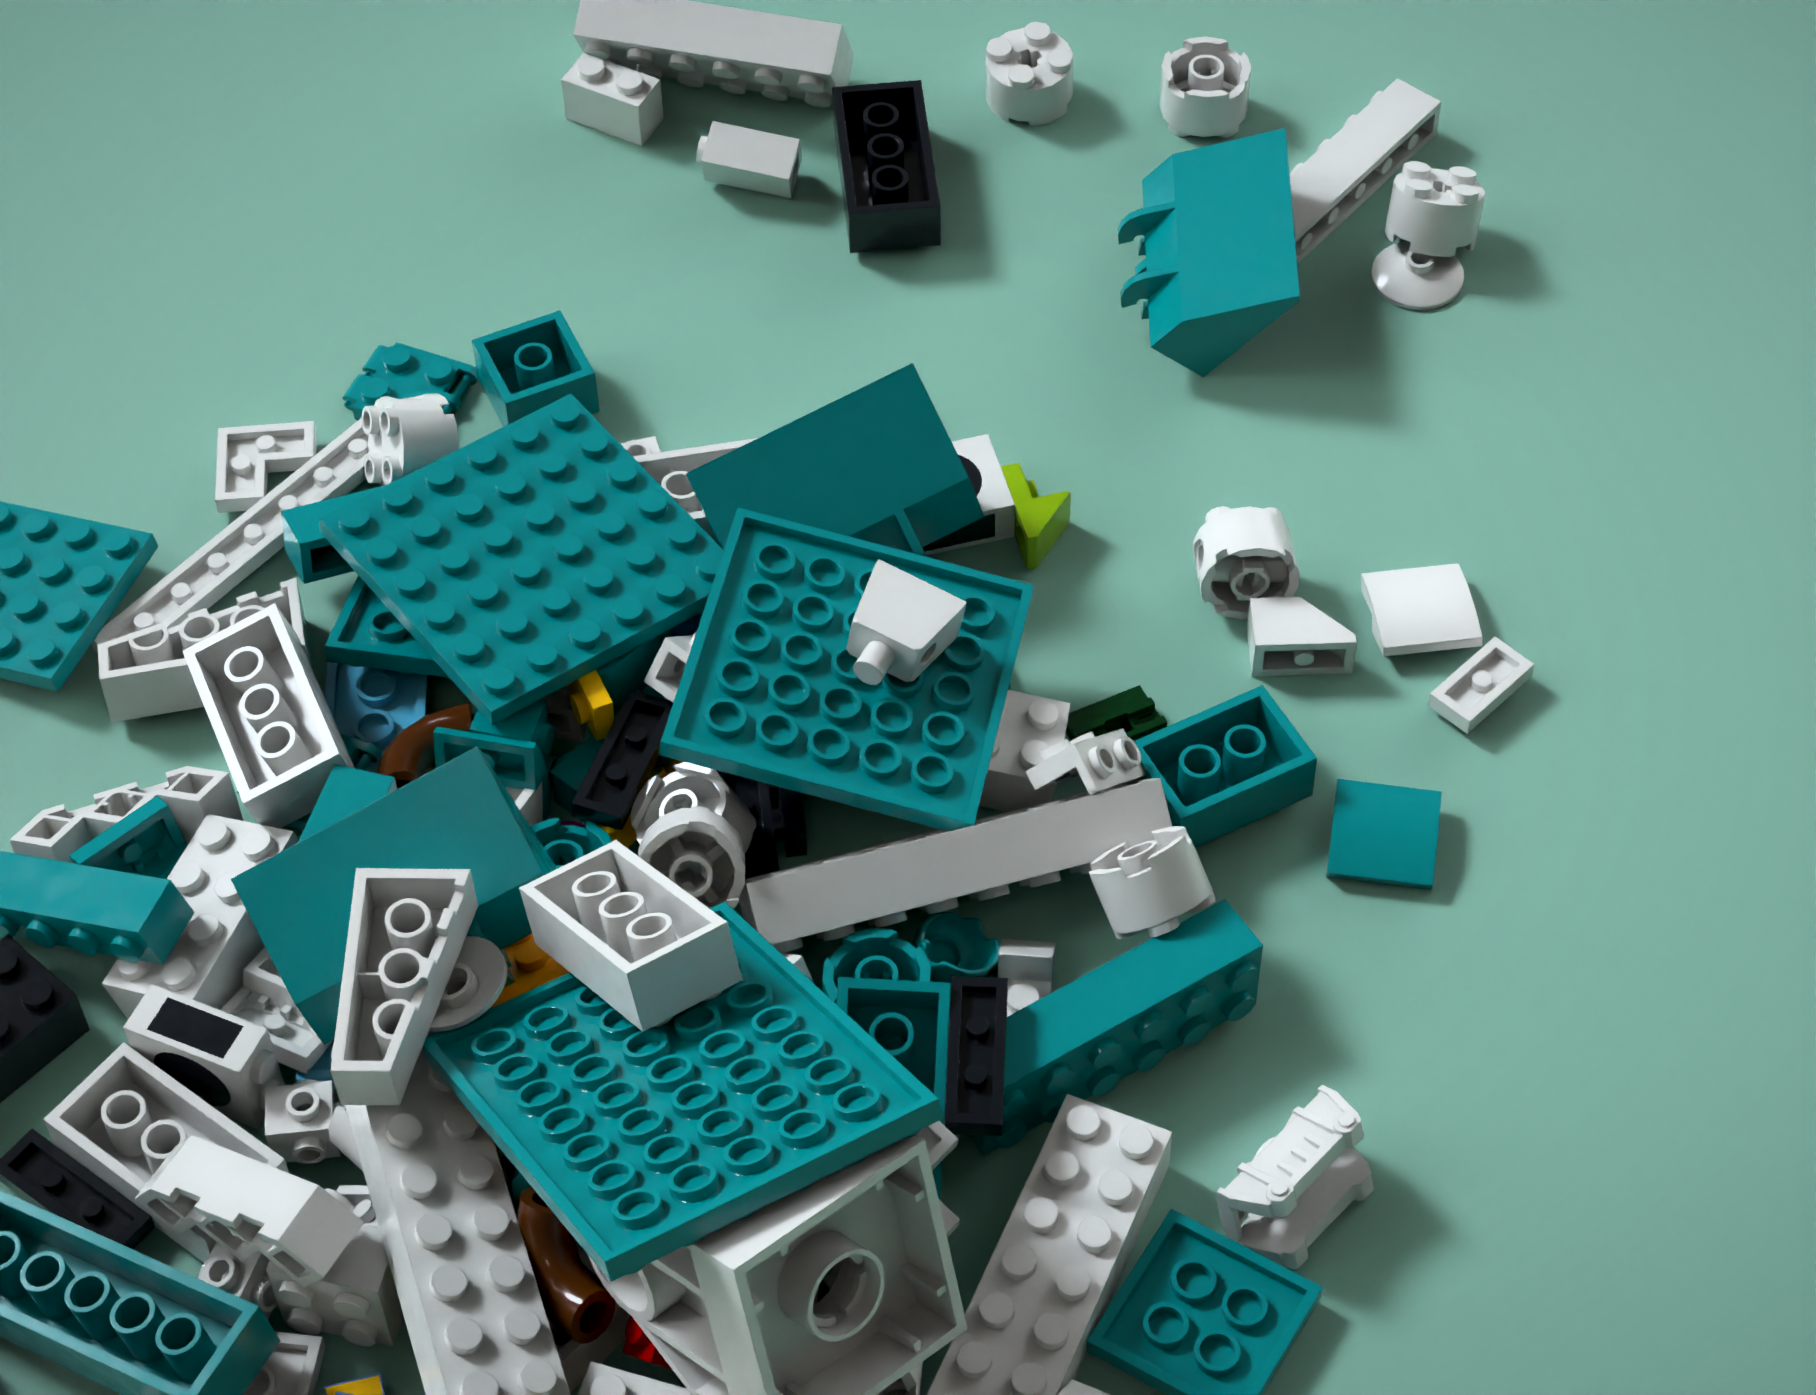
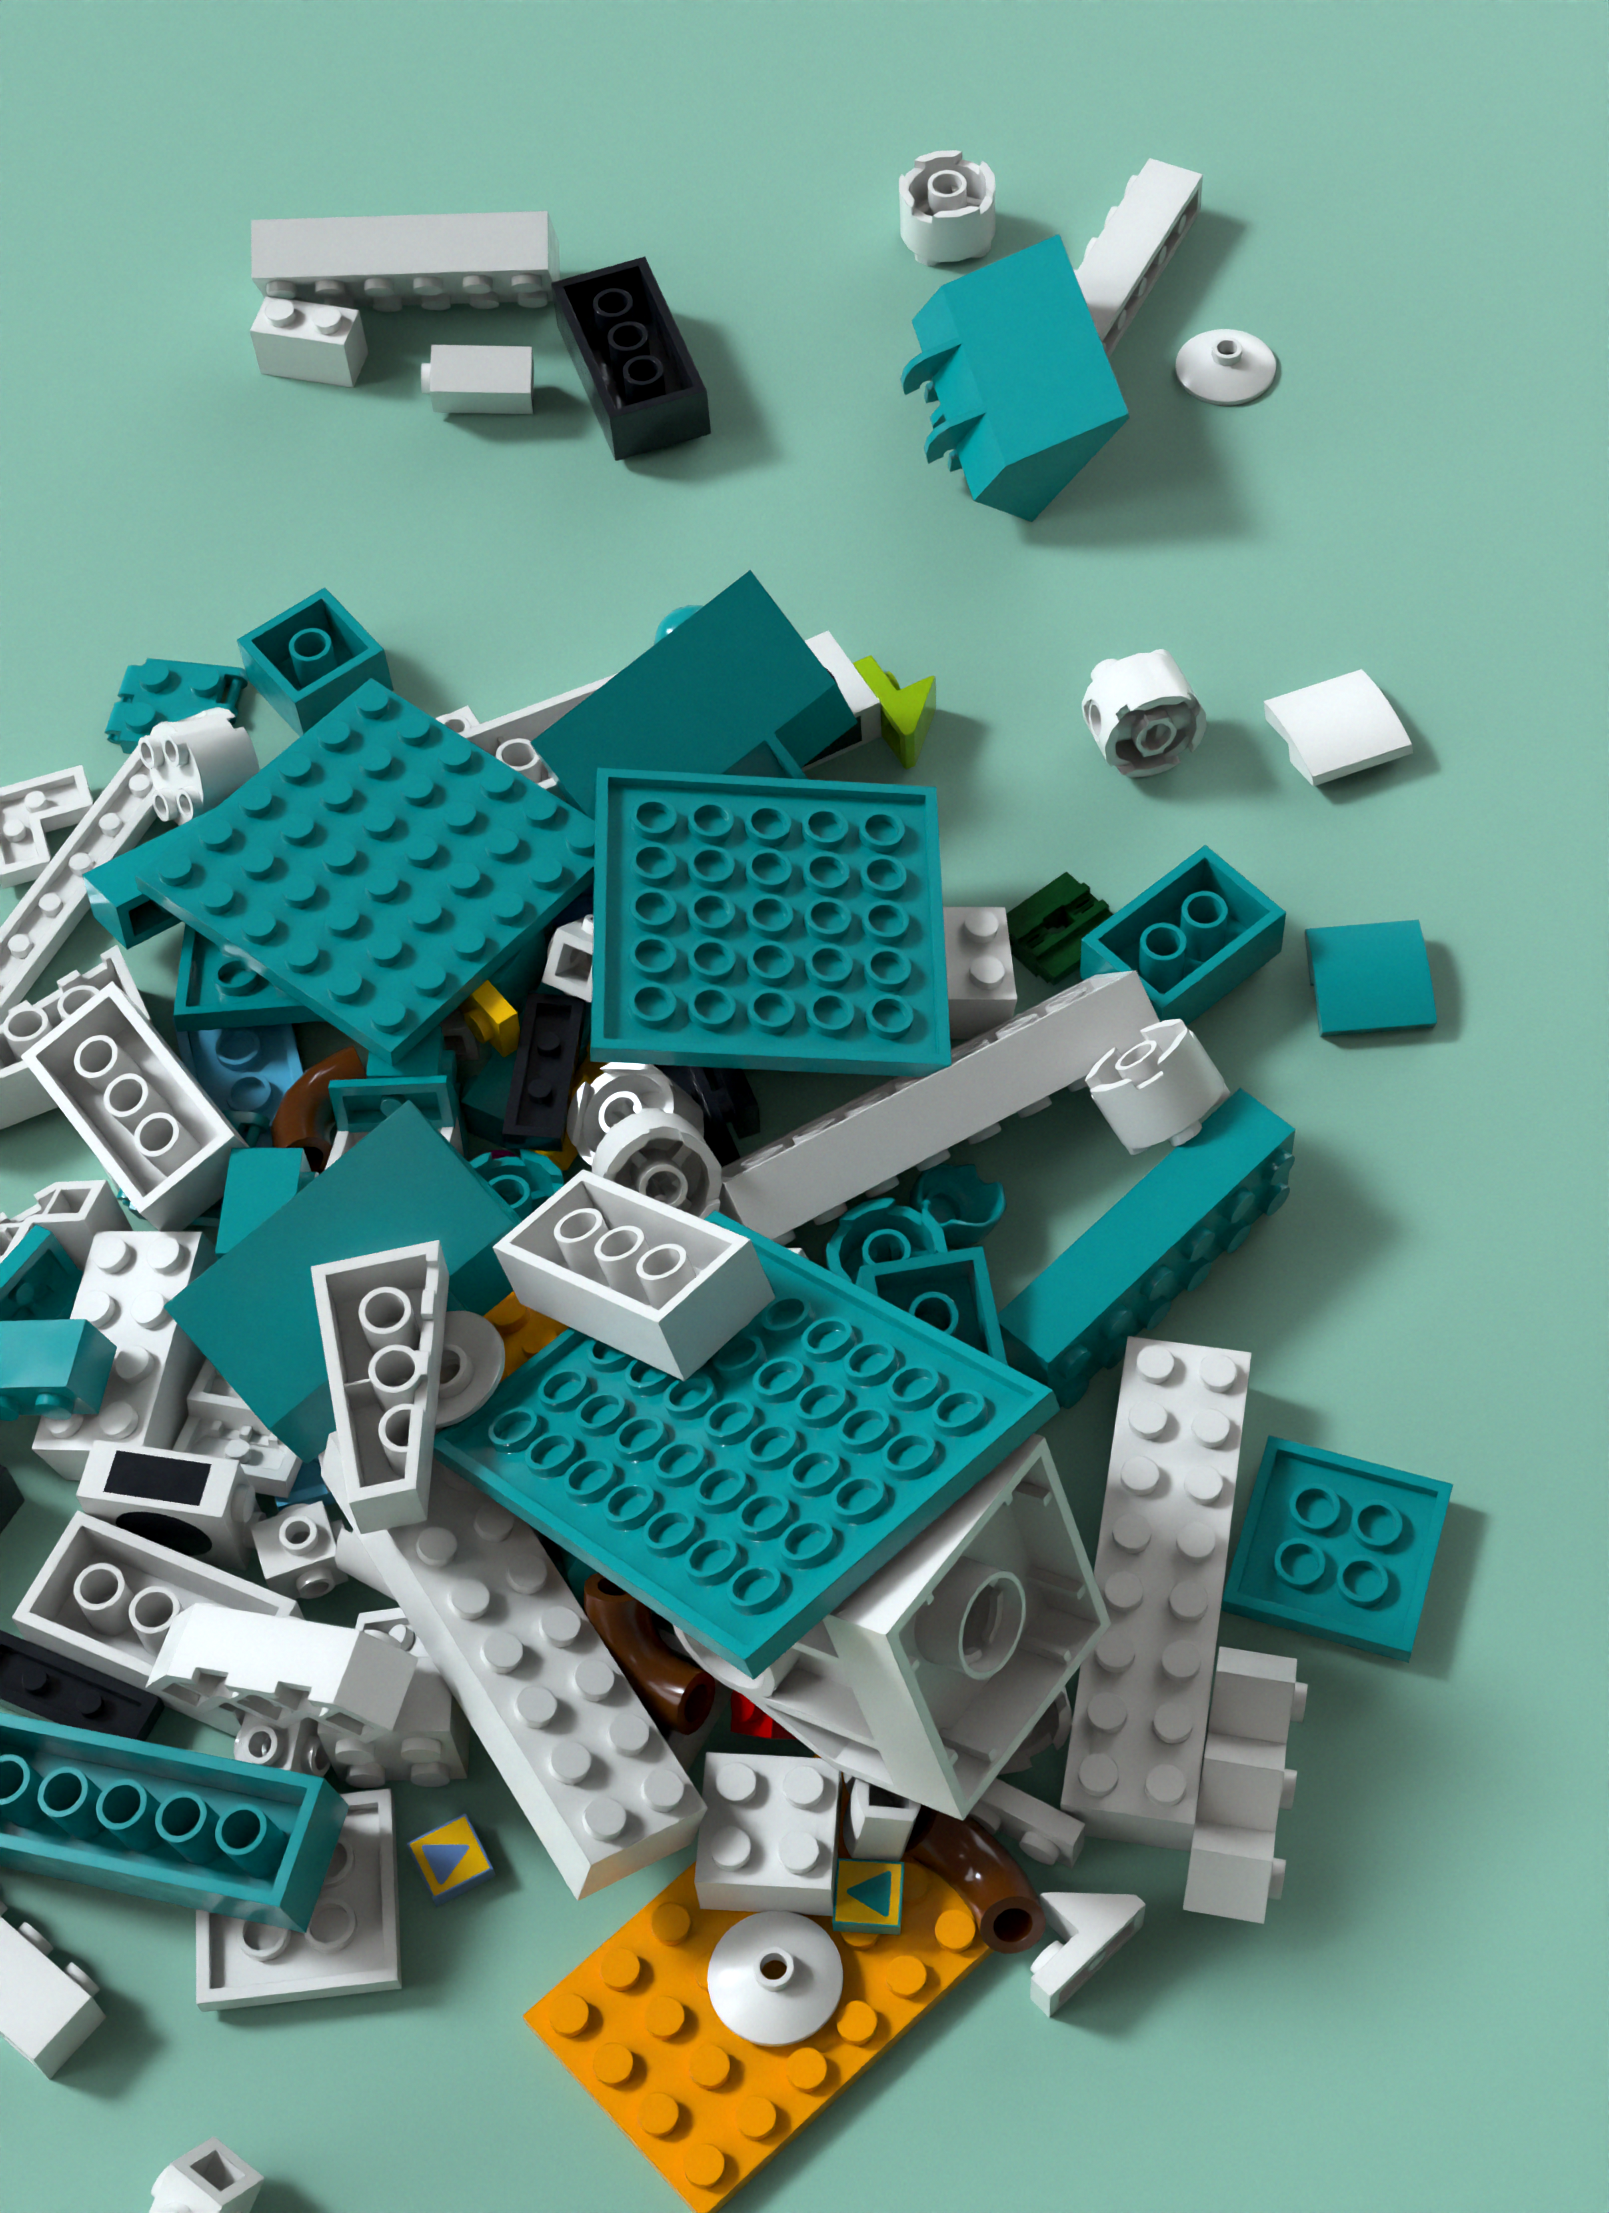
camera: 10 degrees left, 5 degrees up
(901, 625) = (813, 861): white torso -> none
(976, 1056) = (1031, 1312): black plate -> none
(1028, 970) = (1036, 1222): white slope -> none
(1029, 75) = (755, 229): white brick -> none
(1099, 761) = (1066, 963): white bracket -> none
(1296, 639) = (1217, 786): white slope -> none
(1298, 1181) = (1396, 1374): white piece -> none
(1435, 209) = (1231, 291): white brick -> none
(1481, 685) = (1424, 795): white plate -> none

